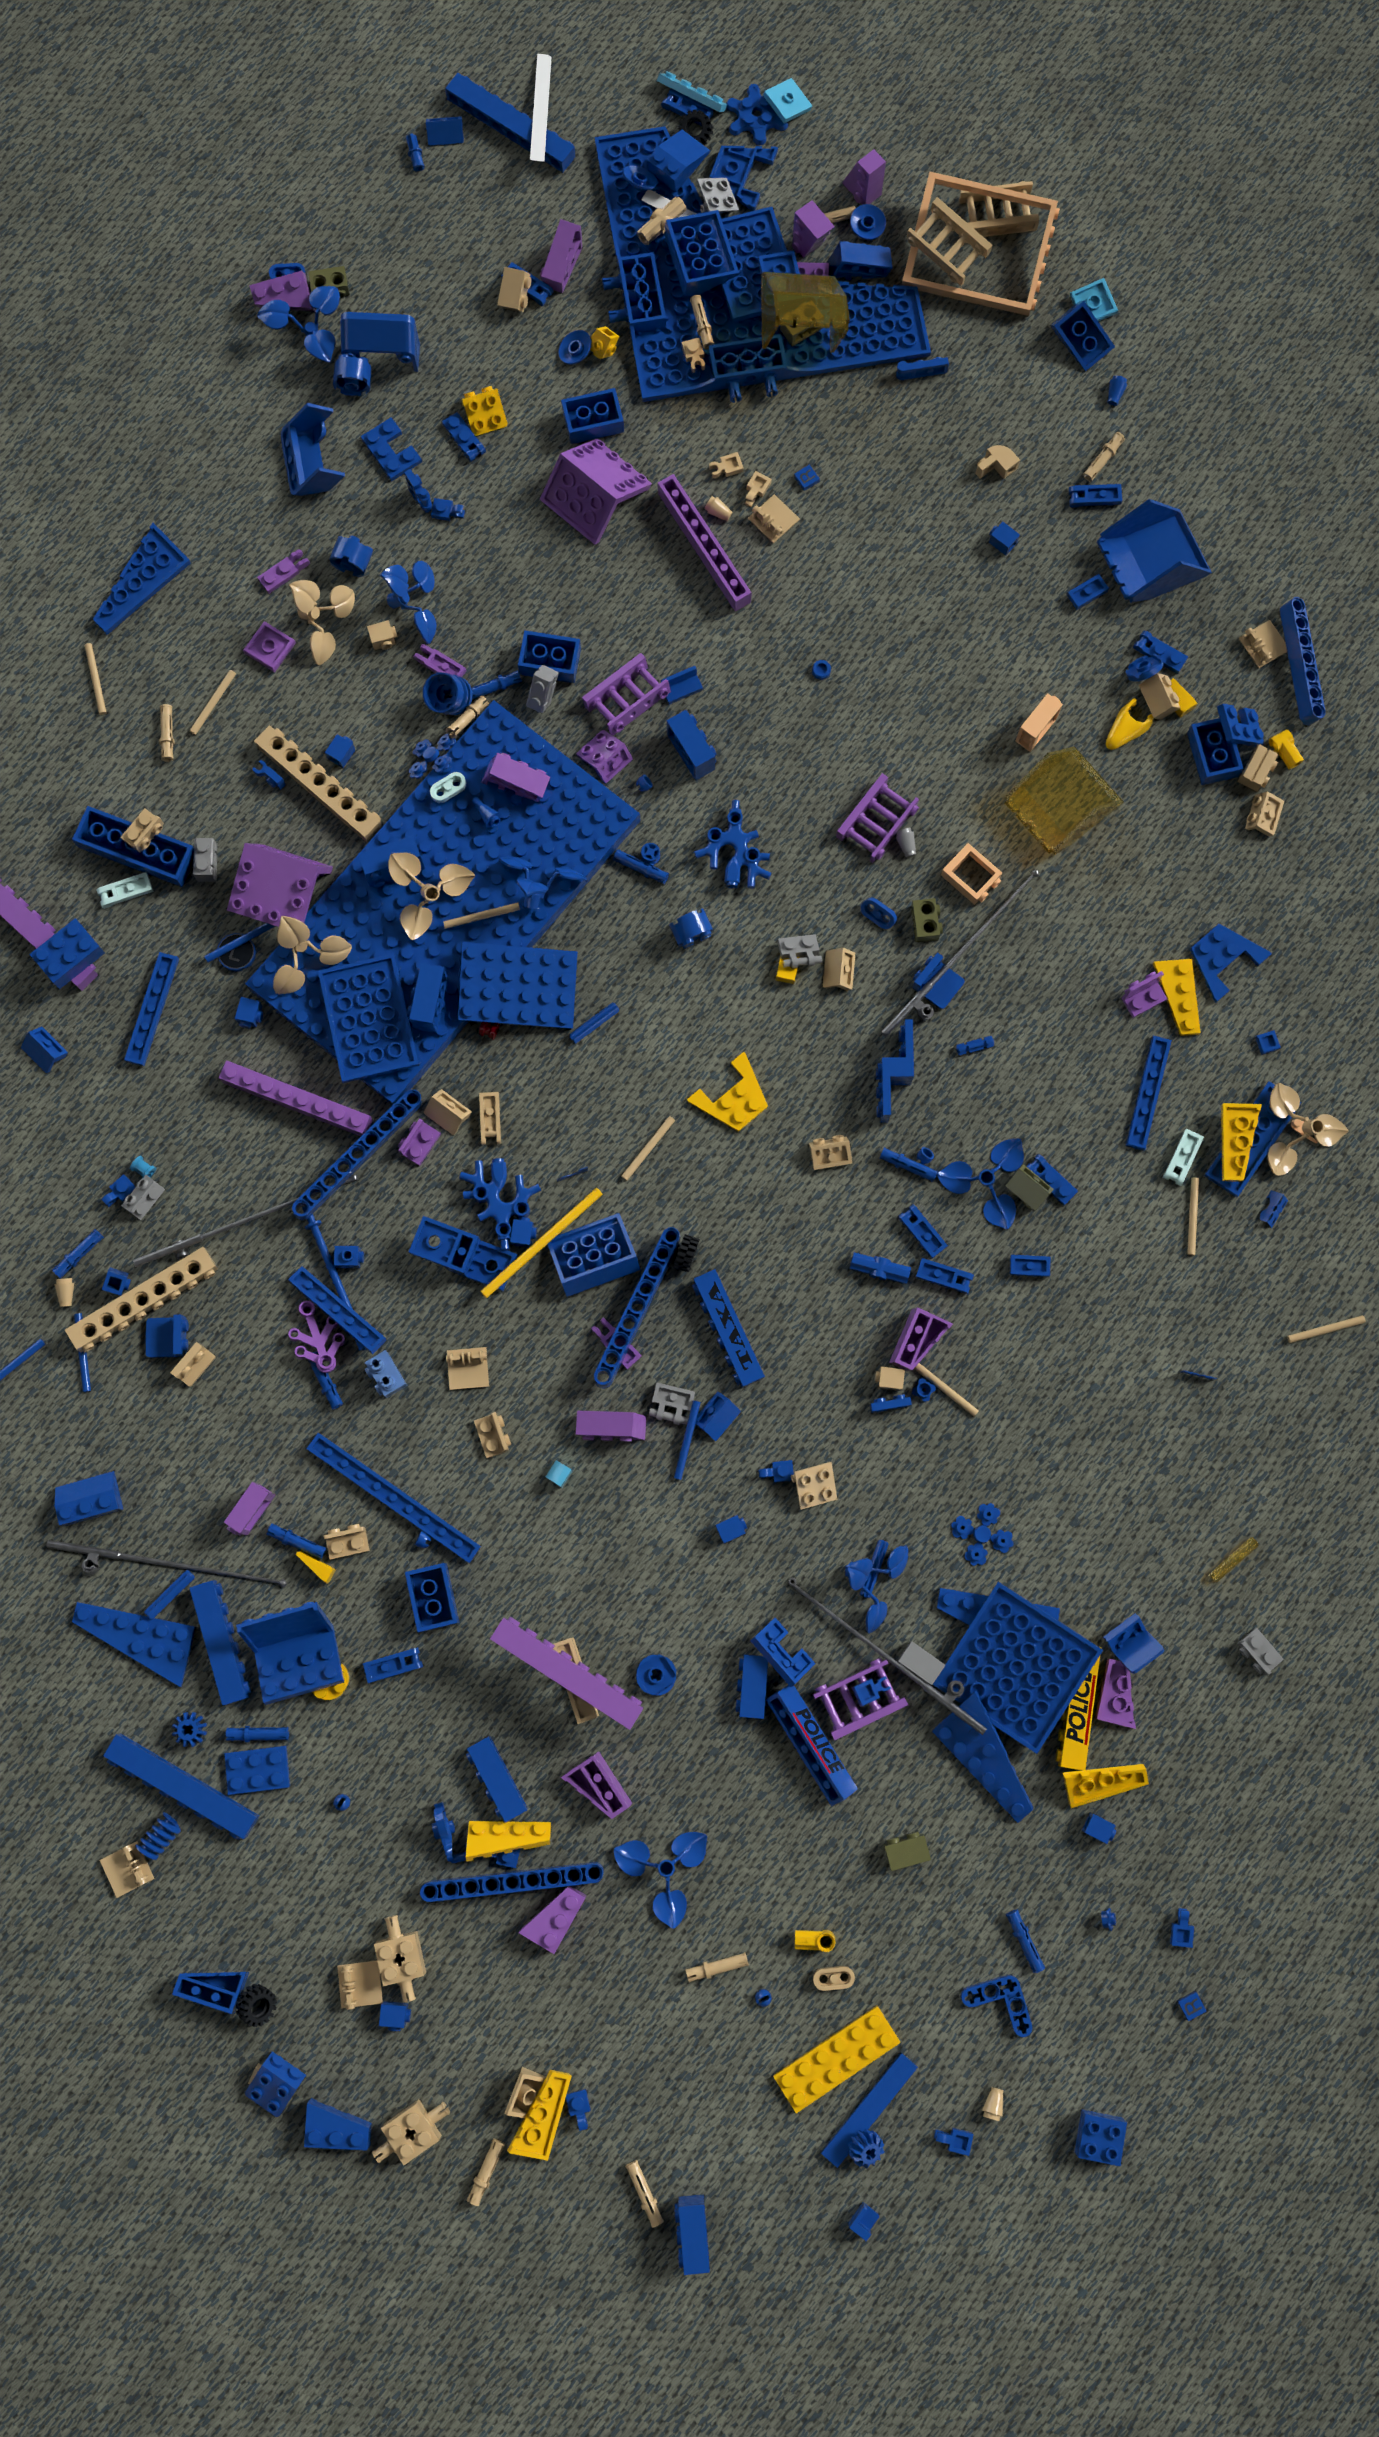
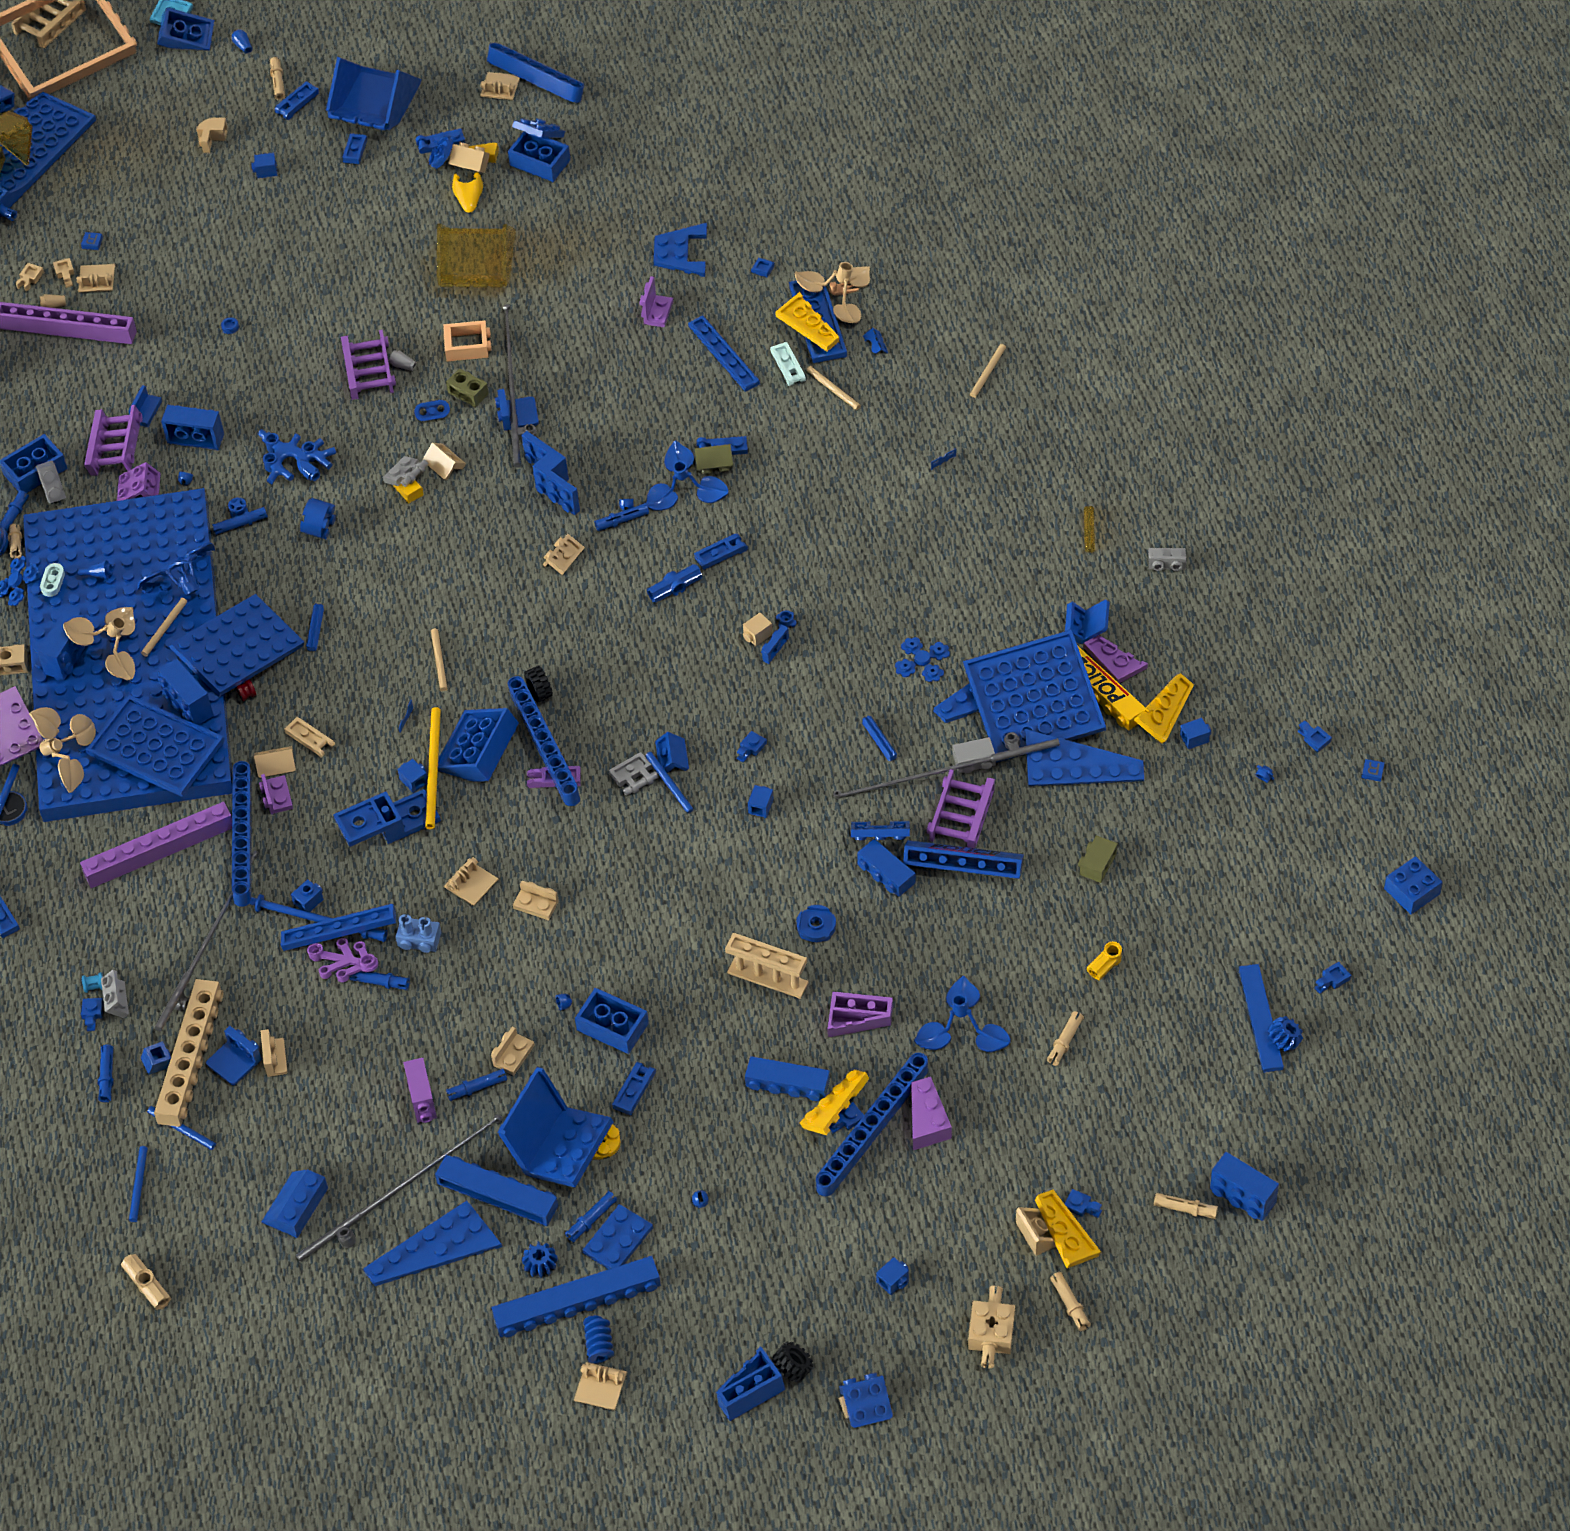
camera: 45 degrees left, 25 degrees down
(64, 1291) = (122, 1101): tan cone -> none
(169, 1594) = (425, 1199): blue axle -> none
(249, 1013) = (61, 829): blue brick -> none
(321, 1569) = (507, 1083): yellow slope -> none
(335, 2129) = (938, 1378): blue wedge -> none
(359, 1984) = (847, 1286): tan hinge -> none
(391, 1969) = (854, 1239): tan brick -> none
(394, 1497) = (512, 997): blue plate -> none
(443, 1830) = (789, 1139): blue animal -> none
(496, 1208) = (362, 772): blue plant -> none
(516, 776) = (92, 532): medium lavender wedge -> none
(558, 1473) = (608, 877): medium azure brick -> none
(567, 1673) = (755, 947): medium lavender brick -> none
(610, 1425) = (608, 818): medium lavender wedge -> none
(729, 1329) = (618, 700): blue brick -> none
(738, 1104) = (469, 583): yellow wing -> none
(760, 1994) = (1120, 1029): blue hinge -> none
(815, 1485) = (783, 727): tan hinge -> none
(833, 1978) = (1144, 971): tan plate -> none
(836, 2059) = (1204, 1012): yellow plate -> none
(858, 1574) = (874, 744): blue plant -> none
(863, 2221) = (1337, 1078): blue panel -> none
(868, 1691) = (961, 794): blue plate -> none
(917, 1338) = (745, 591): medium lavender wedge -> none
(922, 368) = (99, 127): blue plate -> none
(923, 1231) = (676, 541): blue plate -> none
(946, 1389) = (799, 607): tan bar -> none
(962, 228) = (38, 33): tan fence -> none
(975, 1045) = (583, 423): blue axle -> none
(994, 2104) = (1330, 936): tan cone -> none
(1009, 1996) = (1260, 872): blue beam -> none
(1025, 1941) = (1231, 834): blue pin -> none
(1030, 1265) = (767, 498): blue plate -> none
(1039, 722) = (409, 230): light nougat window -> none
(1180, 993) = (681, 290): yellow wing -> none
(1258, 767) = (578, 143): tan brick -> none
(1265, 813) = (610, 162): tan bracket -> none
(1284, 745) = (576, 121): yellow piece -> none

